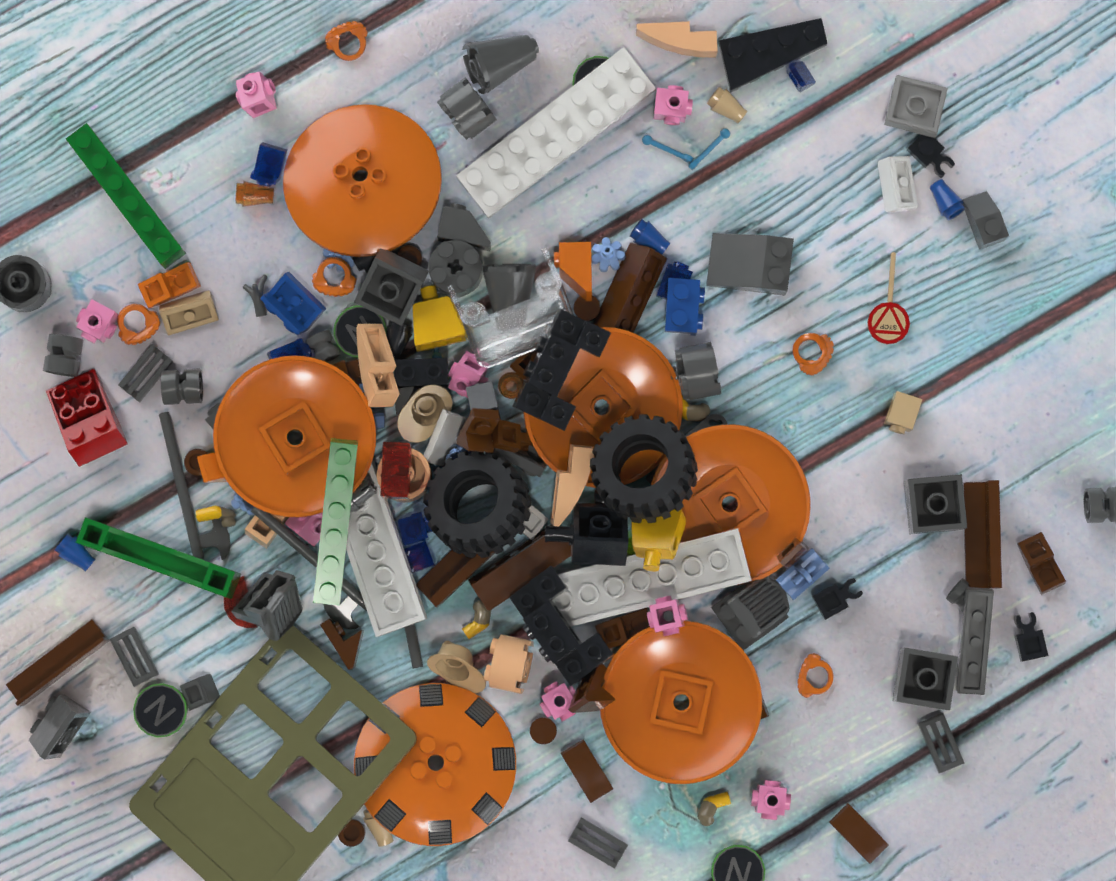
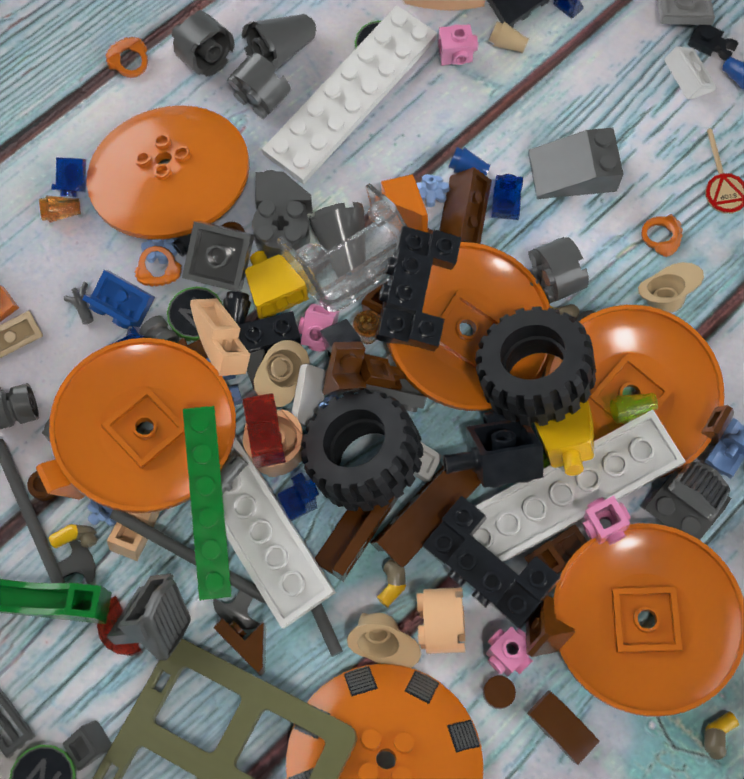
camera: 15 degrees left, 15 degrees down
(256, 94) = (45, 115): bright pink brick -> none
(307, 527) = (176, 522): bright pink brick -> none
(419, 557) = (311, 529): clear blue slope -> none
(422, 49) = (202, 43): none -> dark grey brick
(570, 483) = (458, 403): light nougat slope -> none
(647, 140) = (483, 90): dark azure hinge -> none
(683, 306) = (522, 215): blue bracket -> none
(720, 521) = (629, 407): none -> clear neon green cone
(724, 134) = (513, 64): dark azure hinge -> none
(798, 410) = (671, 286): none -> tan piece

